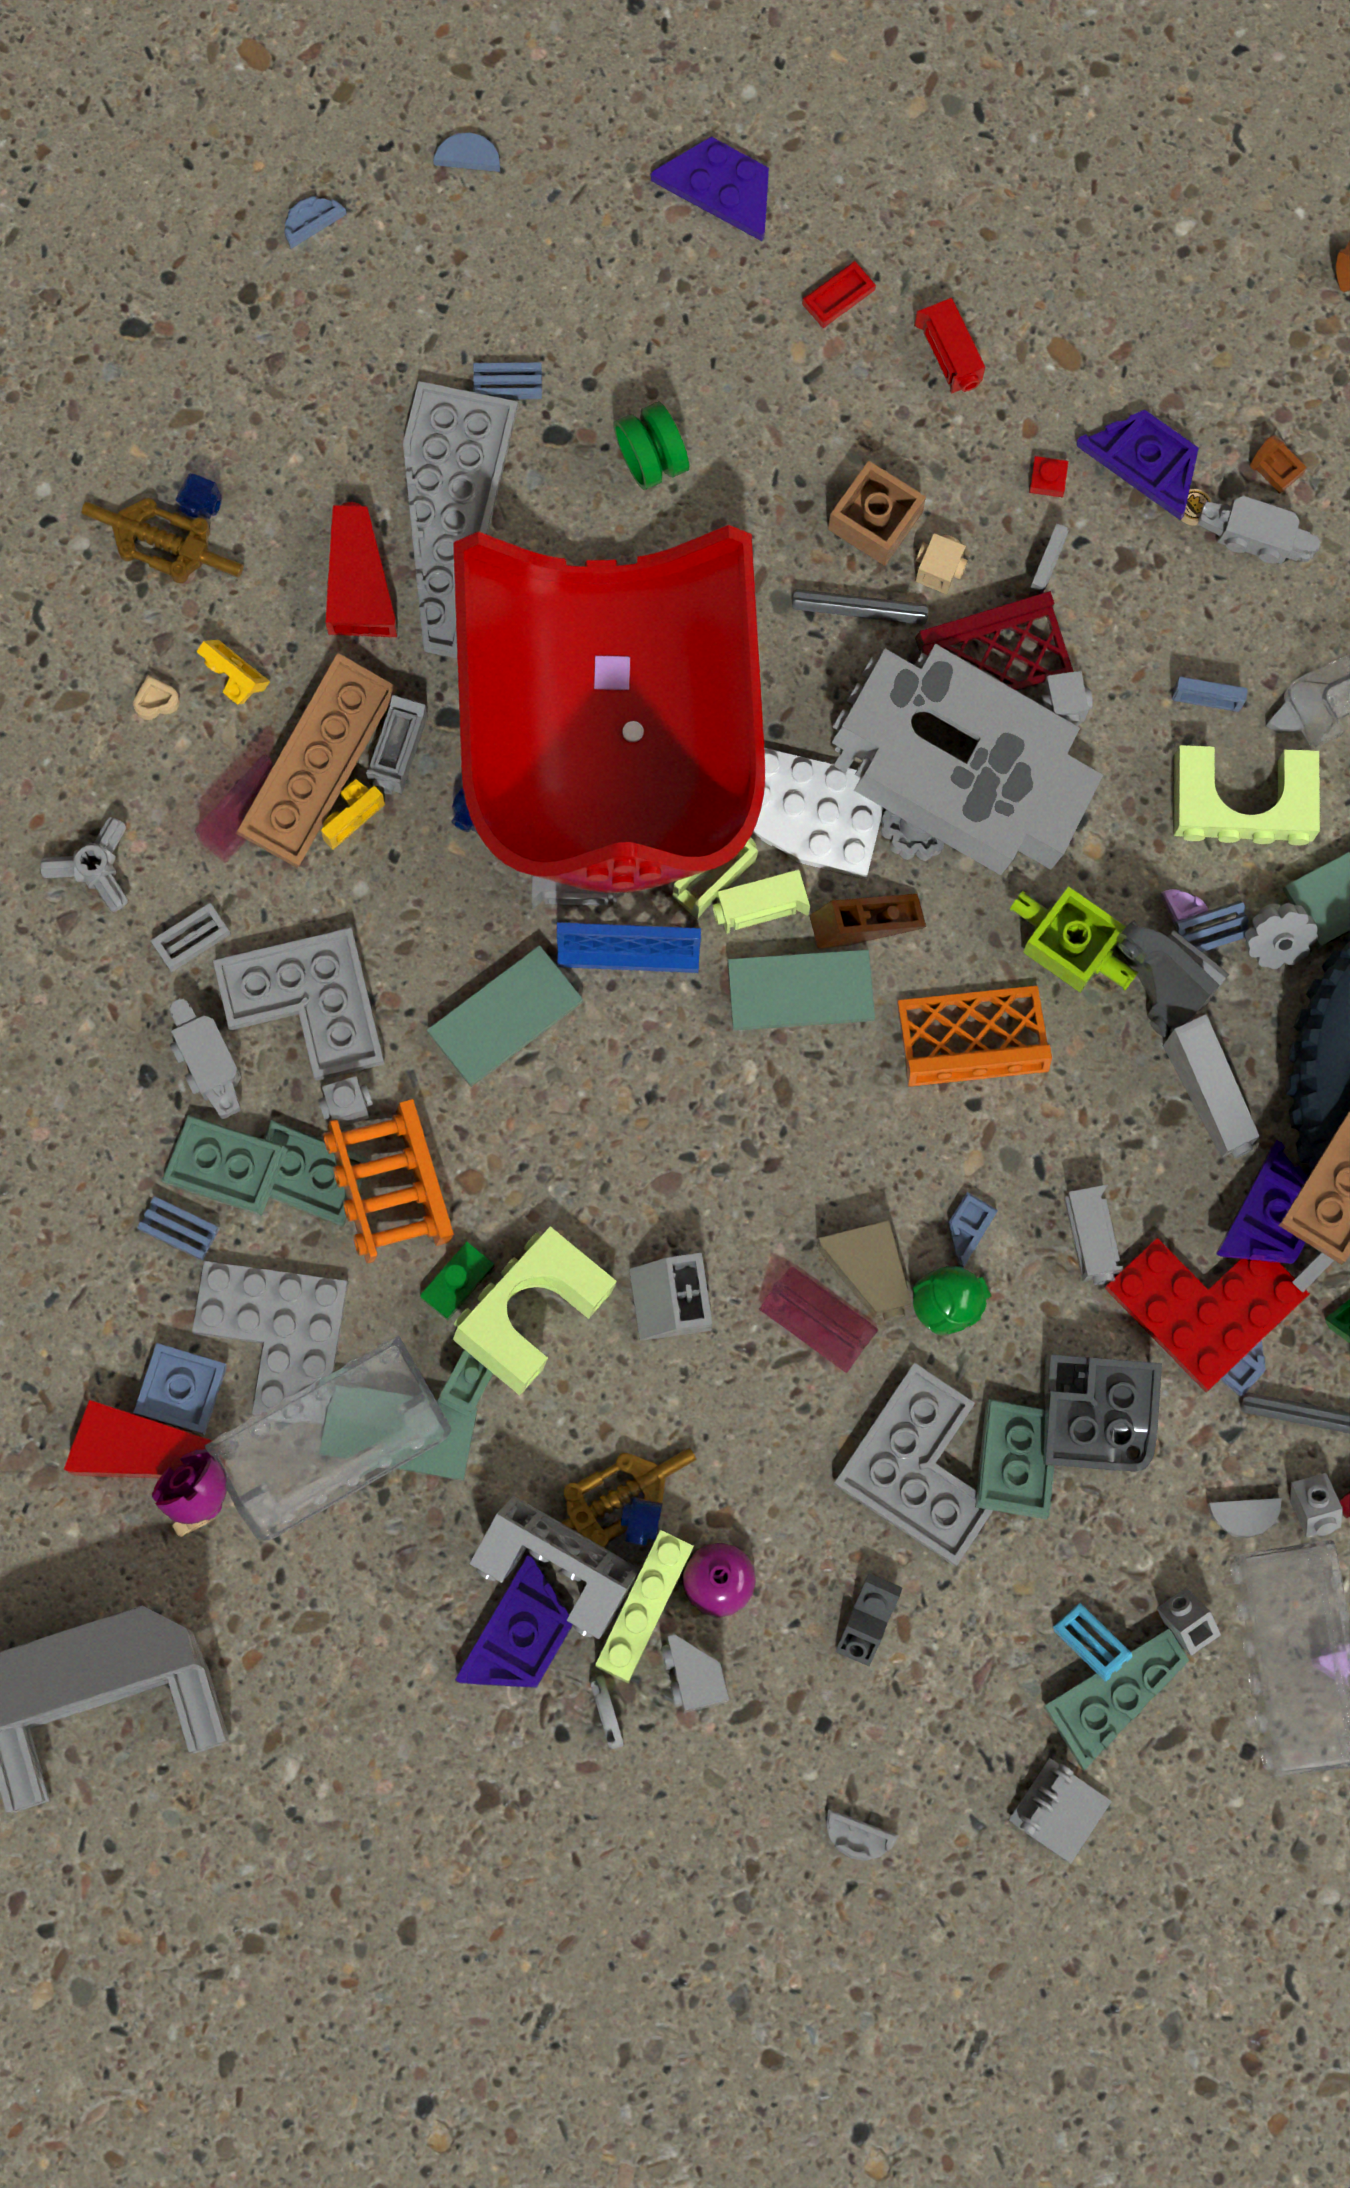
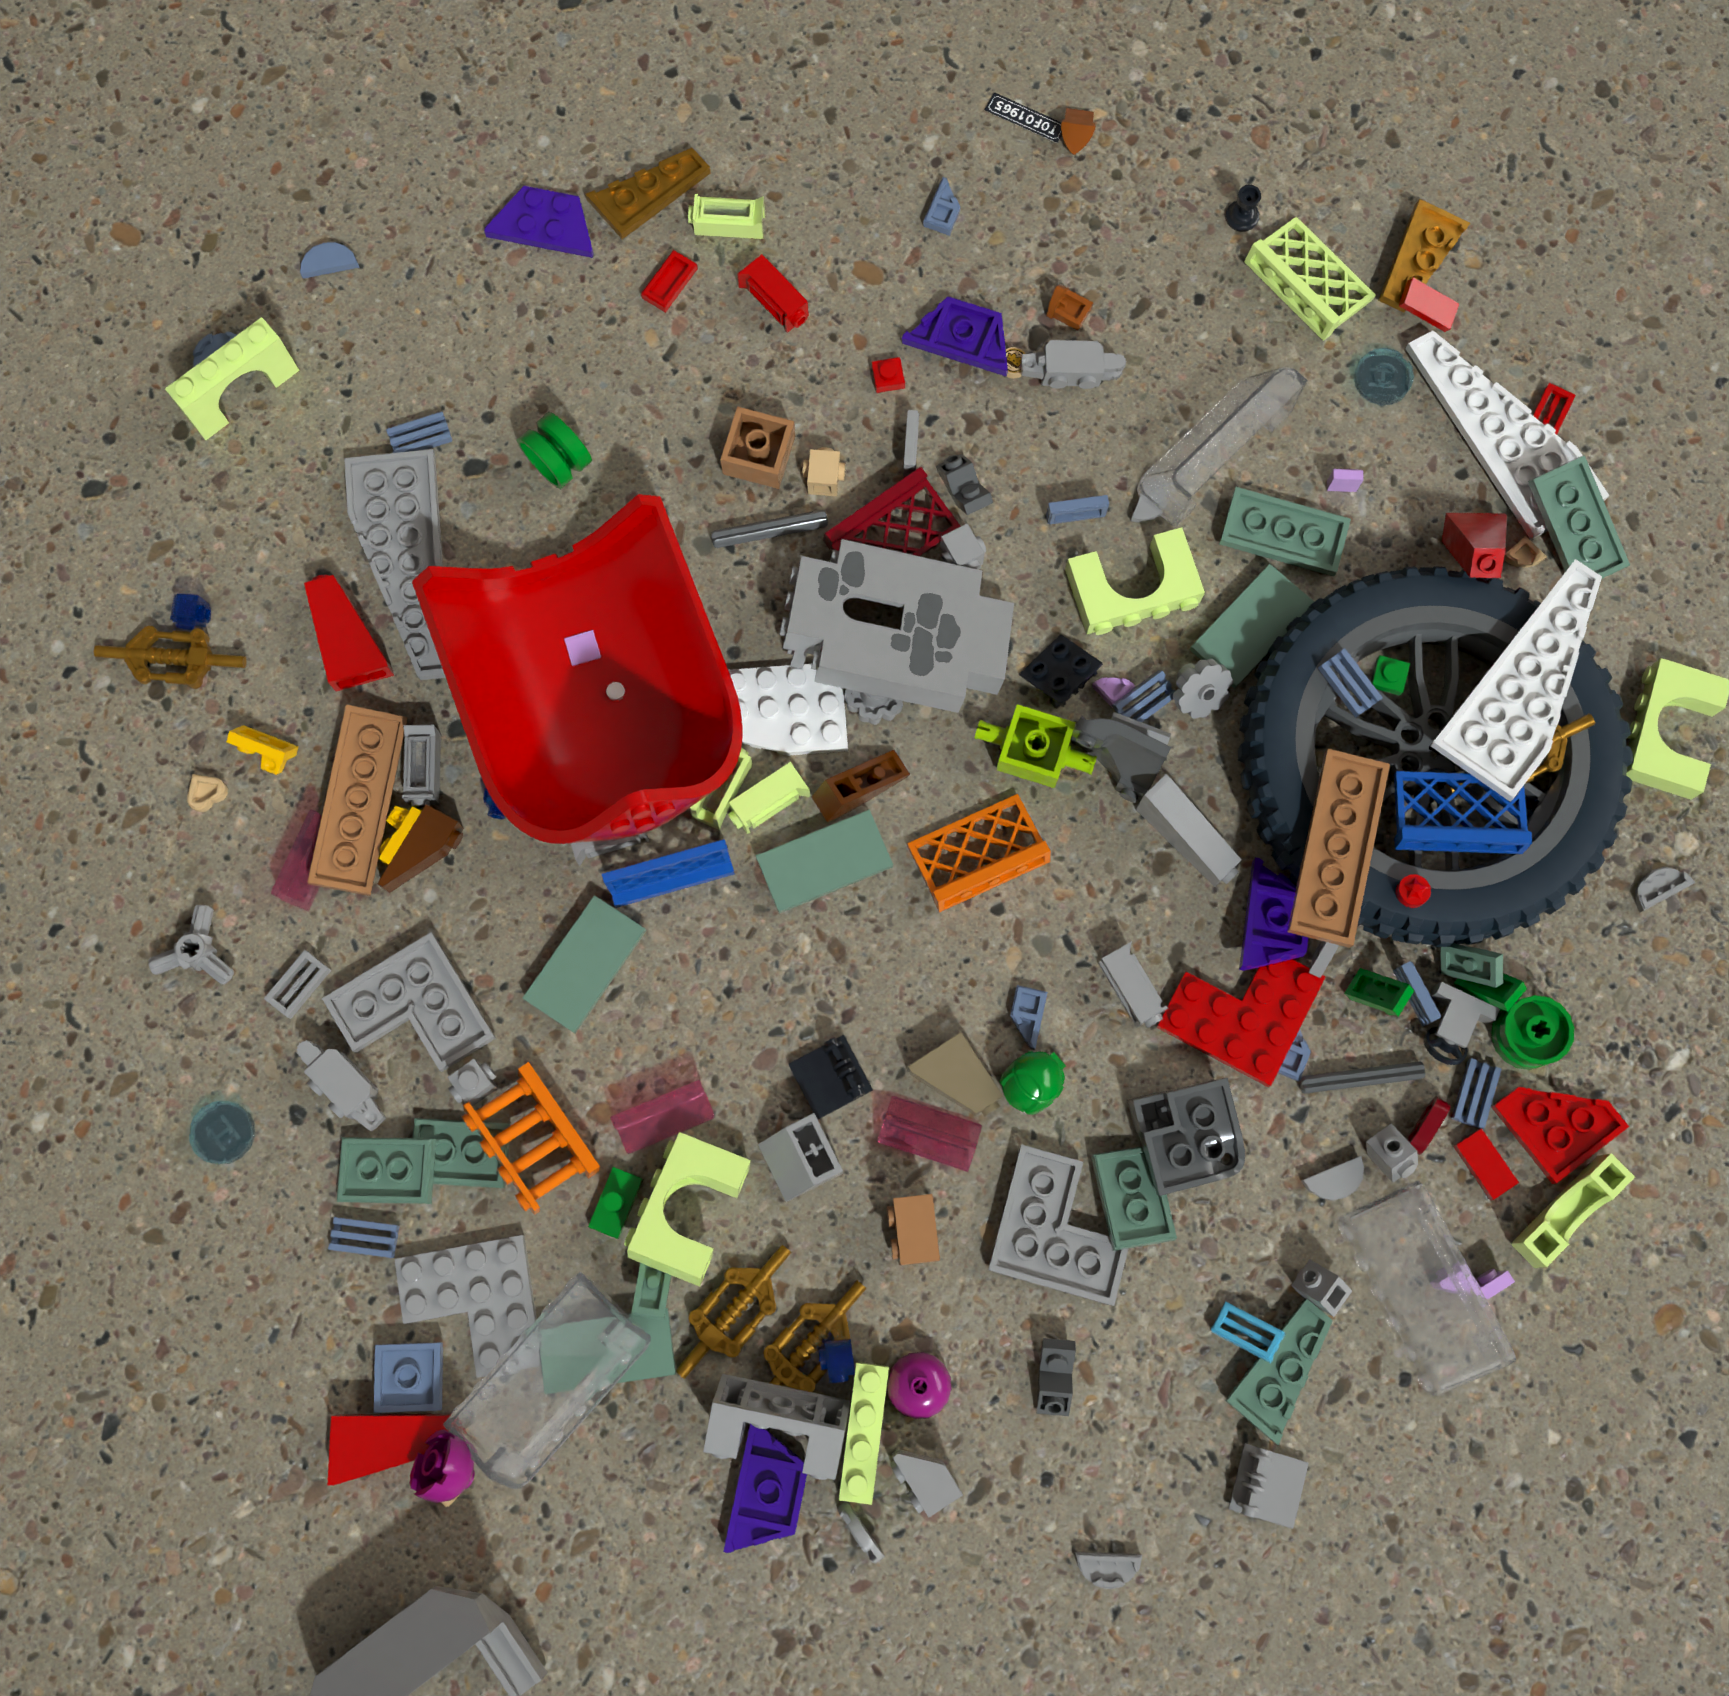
camera: 15 degrees left, 0 degrees up
(62, 1068) = (222, 1132): none -> clear light blue tile
(289, 257) = (200, 388): none -> yellowish green arch
(372, 833) = (424, 845): none -> reddish brown slope
(514, 1454) = (712, 1336): none -> pearl gold bar
(537, 1206) = (663, 1117): none -> clear pink panel
(731, 1223) = (830, 1077): none -> black hinge
(769, 1412) = (915, 1230): none -> medium nougat brick
(839, 189) = (639, 198): none -> pearl gold wing
(927, 242) = (727, 217): none -> yellowish green window
(1092, 625) = (963, 484): none -> dark grey slope
(1131, 866) = (1061, 670): none -> black hinge
(1172, 309) = (943, 210): none -> sand blue tile
(1301, 231) = (1024, 117): none -> black sticker

